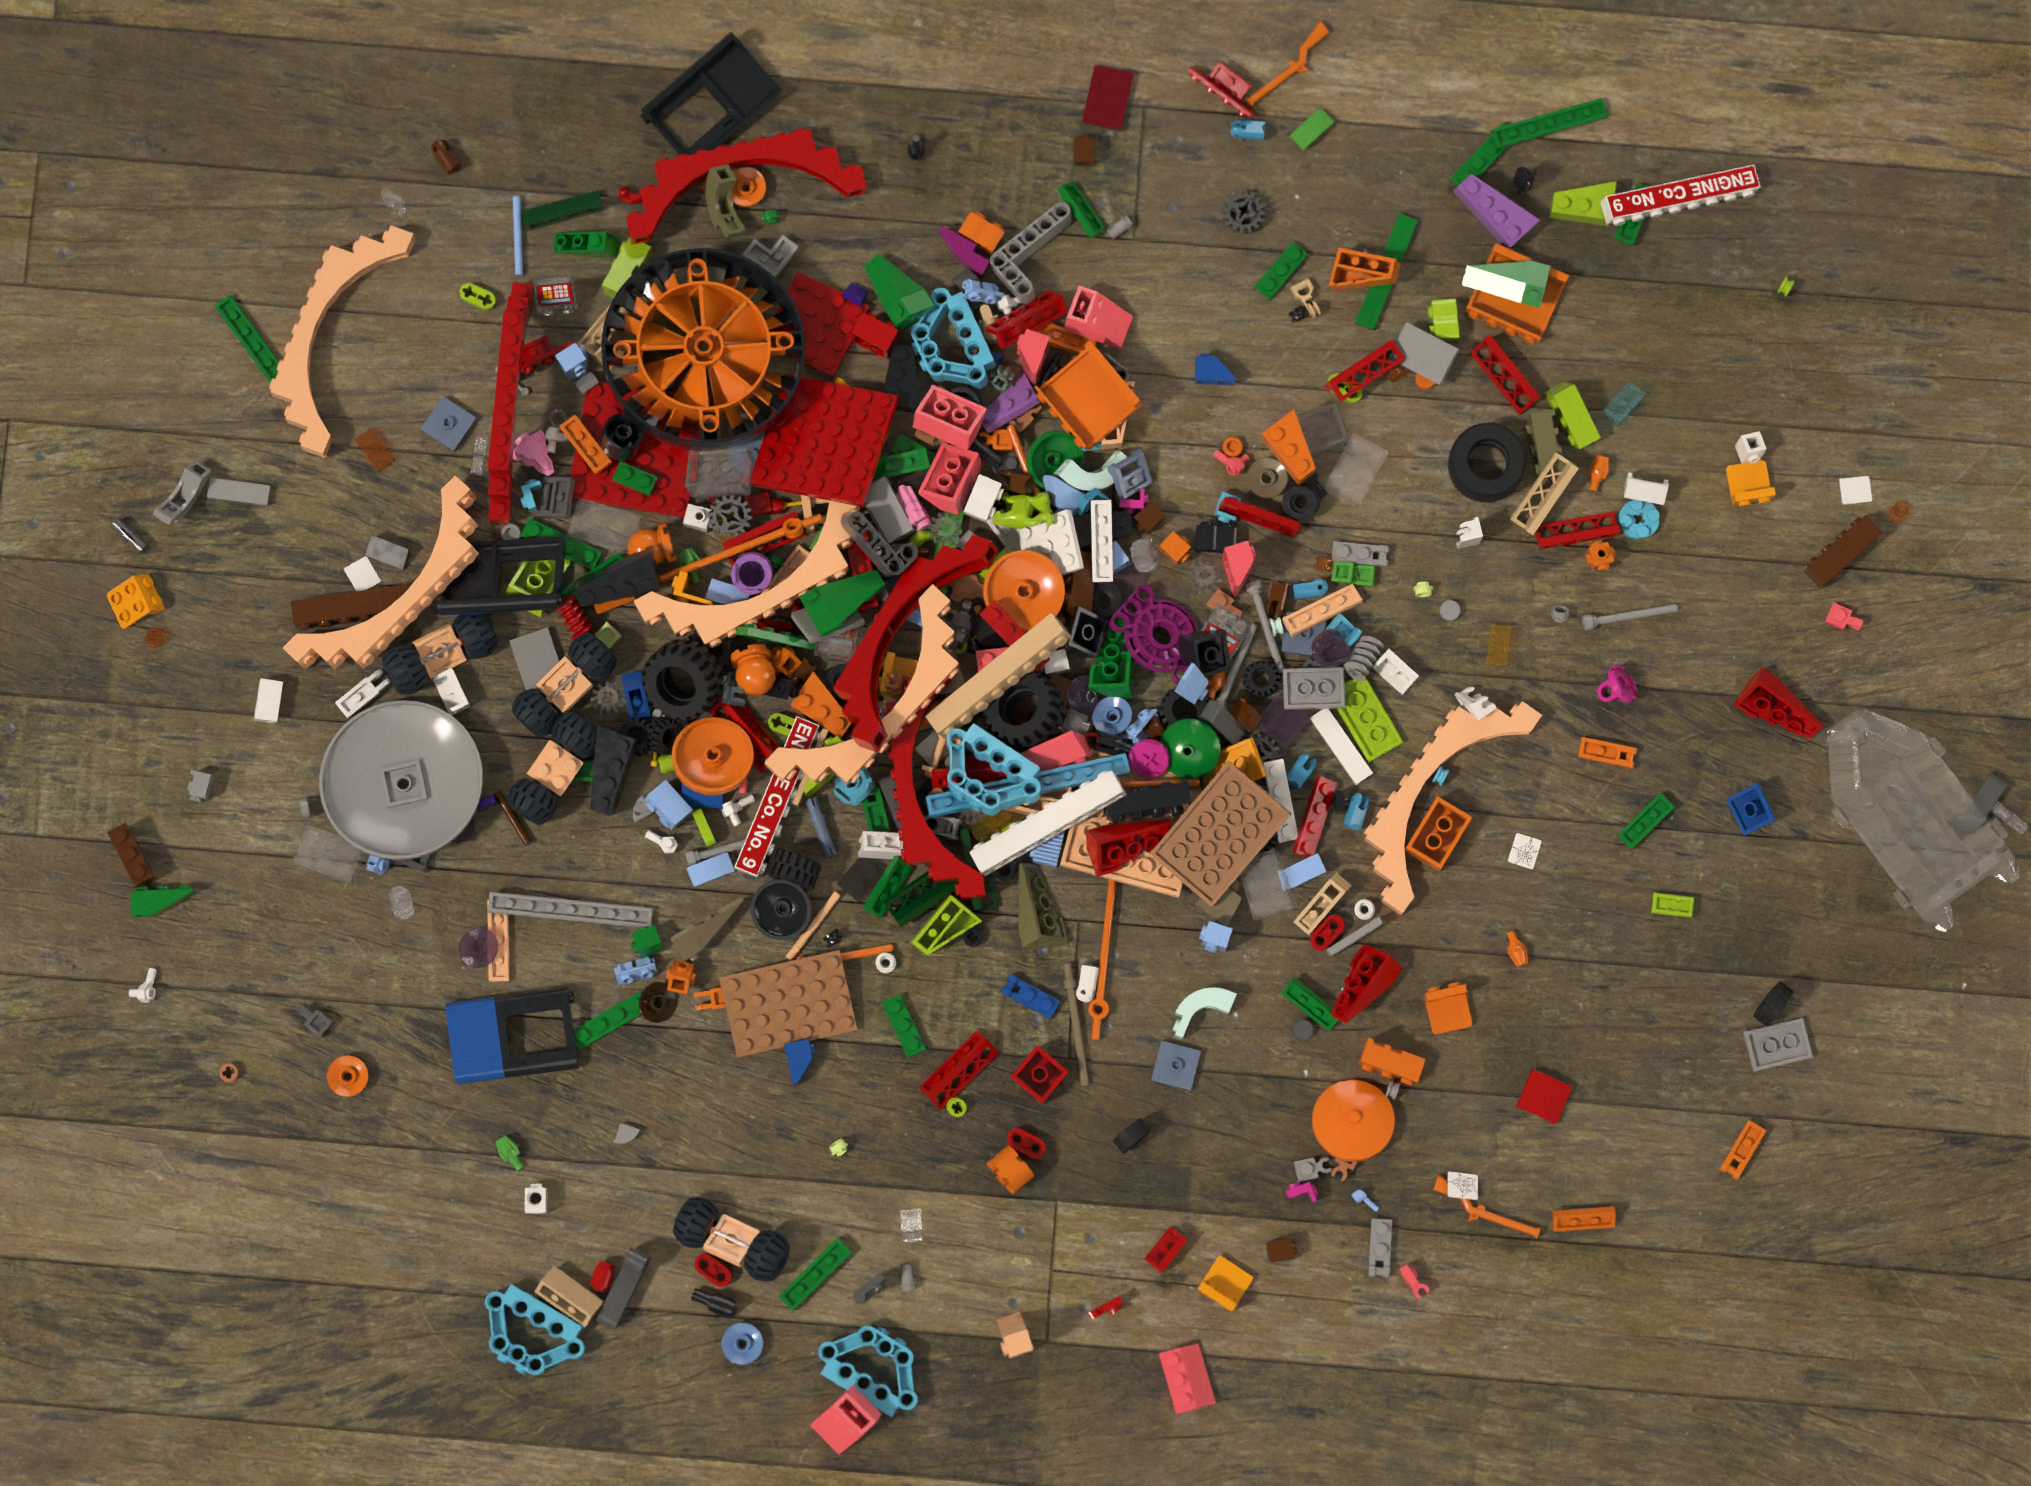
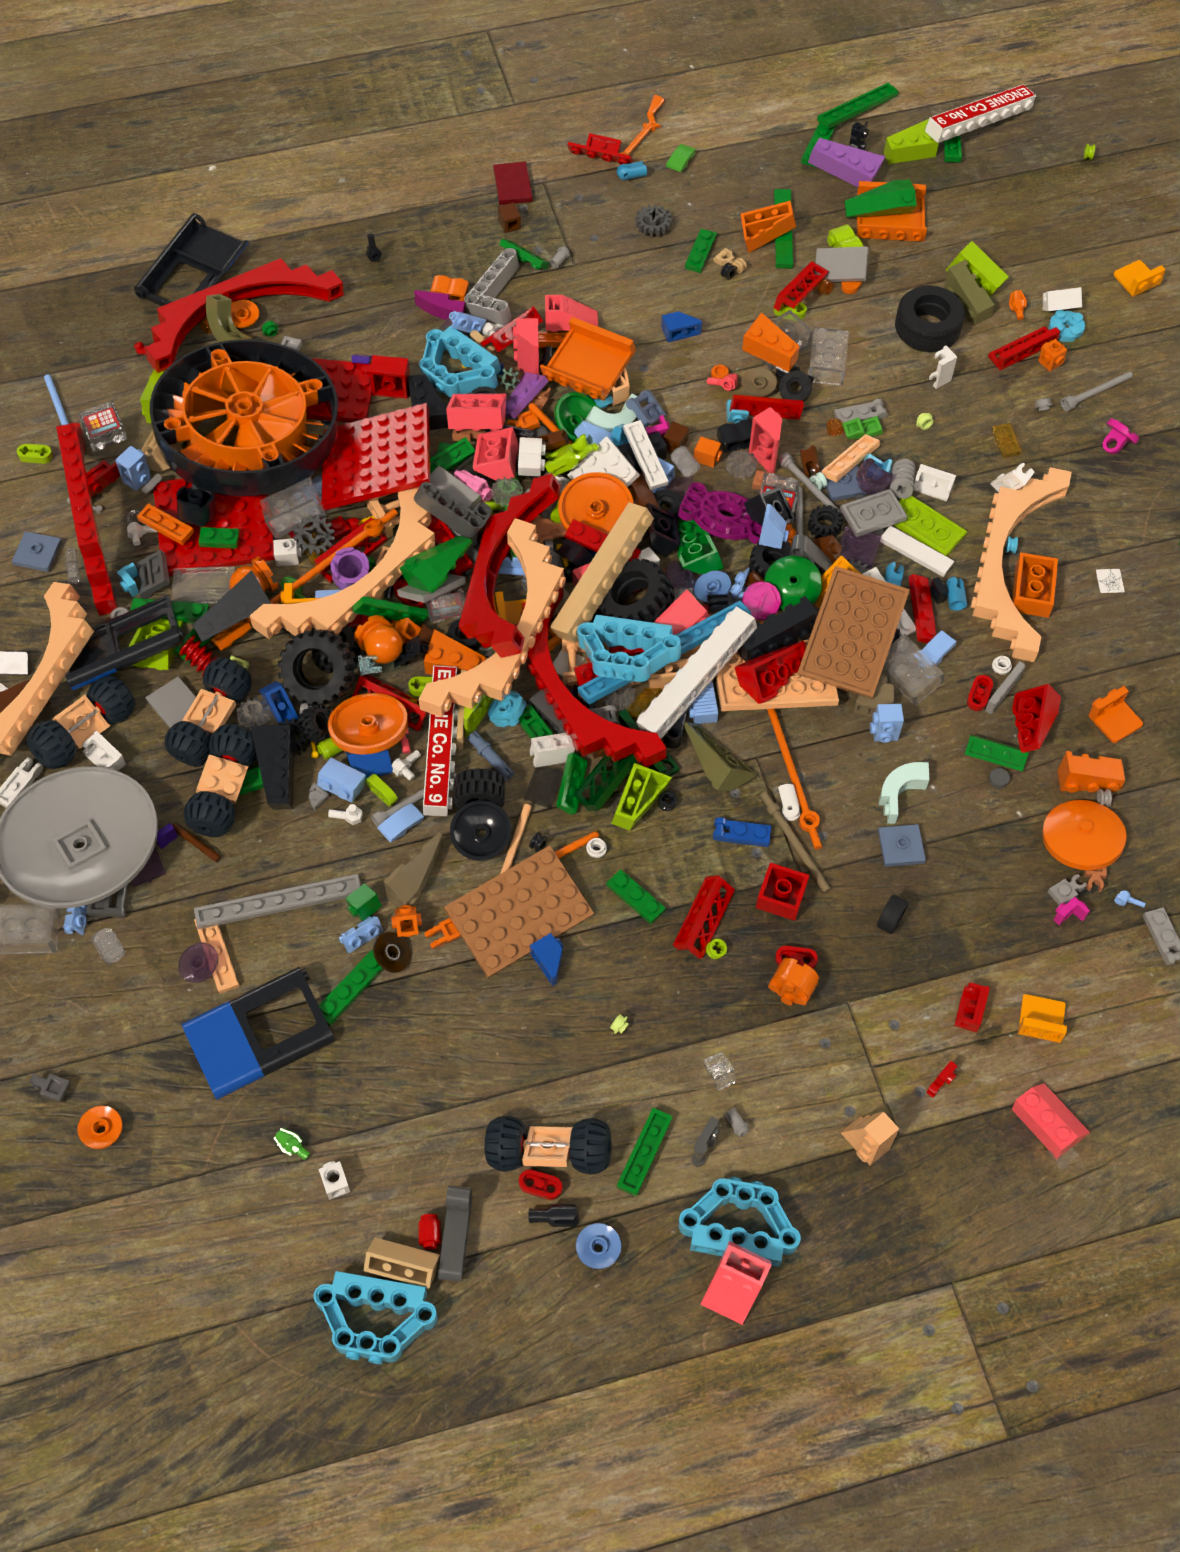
camera: 20 degrees left, 20 degrees down
(534, 452) = (121, 547): bright pink rock -> none
(562, 210) = (91, 374): dark green fence -> none
(586, 244) = (121, 388): green slope -> none
(626, 1134) = (404, 1085): light grey tile -> none
(897, 684) = (512, 613): nougat plate -> none
(898, 293) = (398, 343): green wedge -> none
(1281, 1250) = (1078, 969): reddish brown brick -> none
(1309, 589) = (832, 447): dark azure piece -> none
(1322, 903) = (964, 671): tan slope -> none
(1449, 610) = (953, 430): light grey tile -> none
(1511, 371) = (913, 260): red fence -> none
(1517, 950) = (1147, 653): orange piece -> none
(1547, 500) = (993, 322): tan fence -> none
(1606, 752) = (1136, 487): orange plate -> none
(1623, 403) = (1012, 255): clear light blue hinge -> none
(1750, 447) = (1126, 251): white brick -> none

